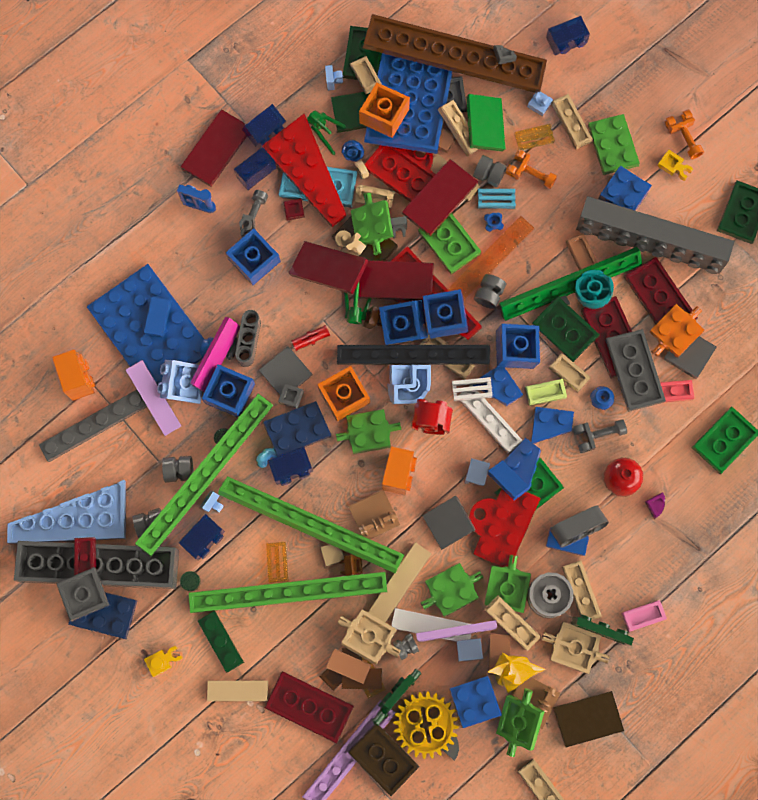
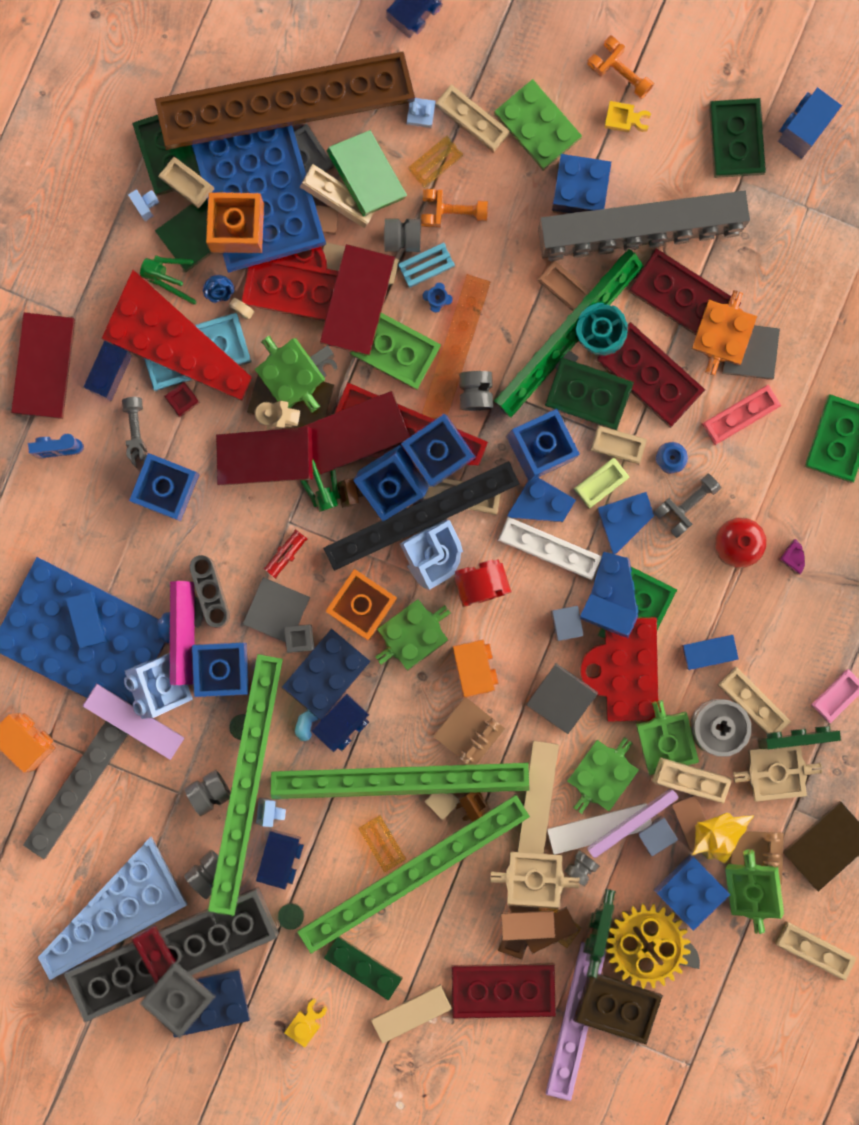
camera: 30 degrees left, 10 degrees up
(264, 125) = (91, 309): clear blue brick -> none
(376, 193) = (279, 331): tan hinge -> none
(476, 388) = (531, 512): white tile -> none
(504, 55) = (347, 72): dark grey tile -> none
(579, 526) = (717, 629): dark grey beam -> none
(635, 370) = (696, 405): dark grey tile -> none

